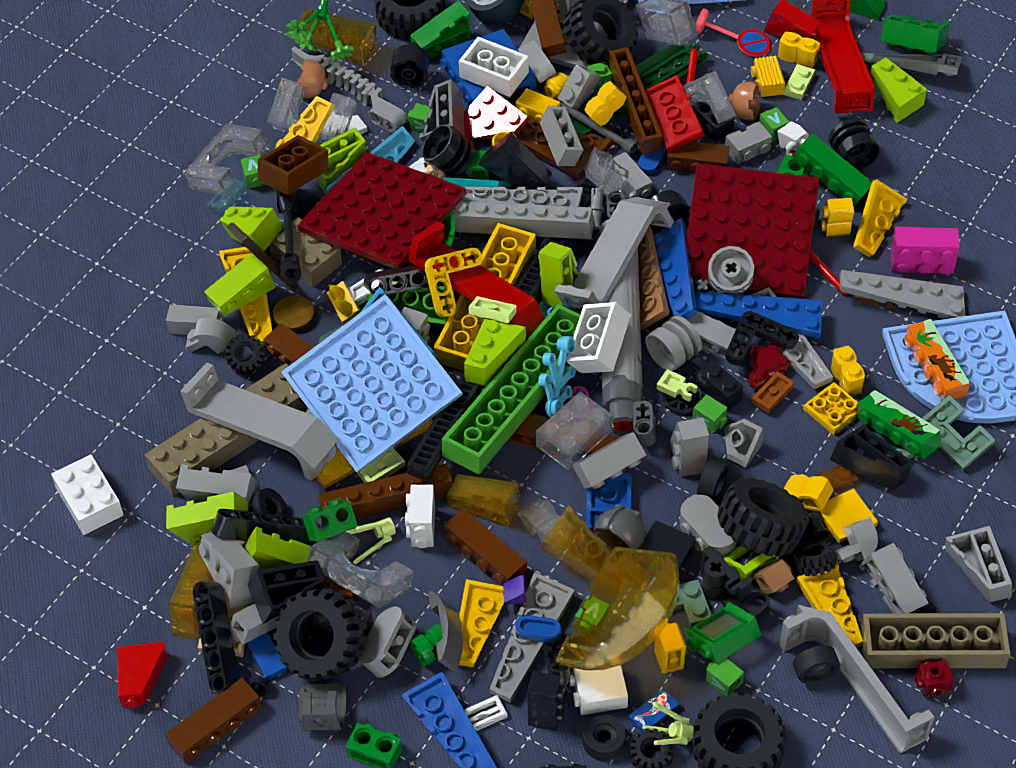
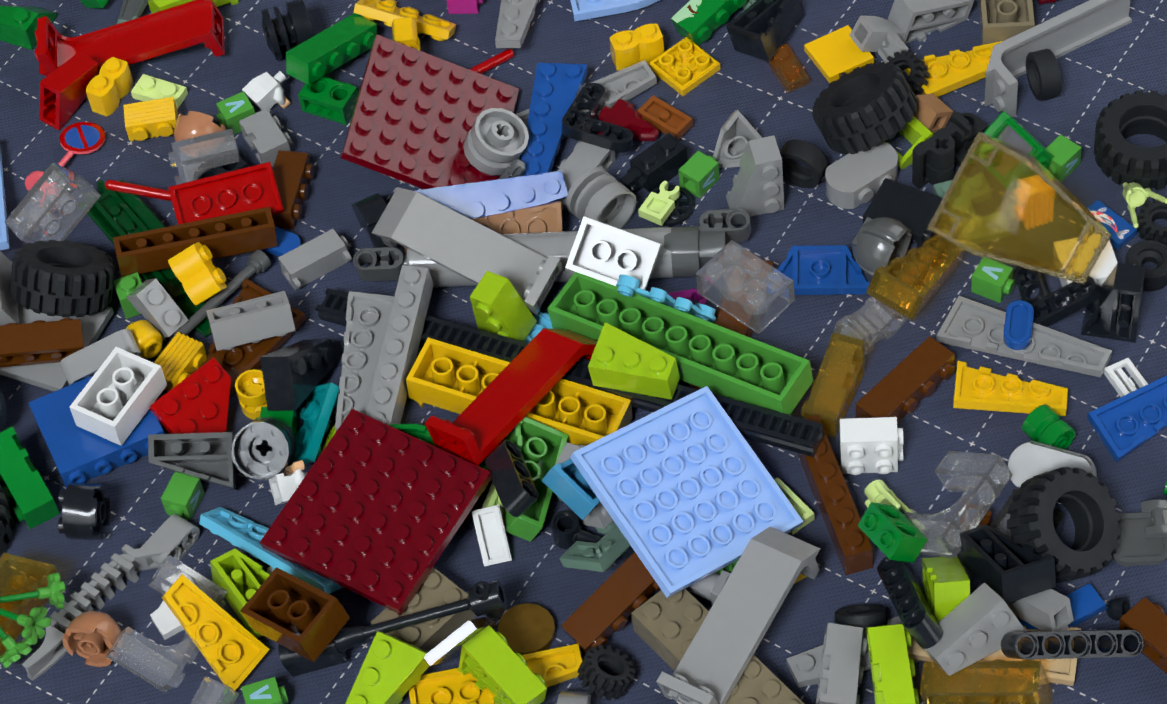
camera: 85 degrees left, 0 degrees up
(343, 302) = (514, 566): yellow tile -> none
(441, 274) = (515, 417): yellow beam -> none
(450, 647) = (1064, 401): dark grey slope -> none
(492, 309) = (577, 356): yellowish green plate -> none
(515, 591) = (968, 347): dark purple slope -> none
(596, 205) = (366, 287): light grey pin -> none
(605, 171) = (317, 274): clear brick -> none
(609, 461) = (781, 250): light grey brick -> none
(810, 491) = (814, 76): yellow brick -> none

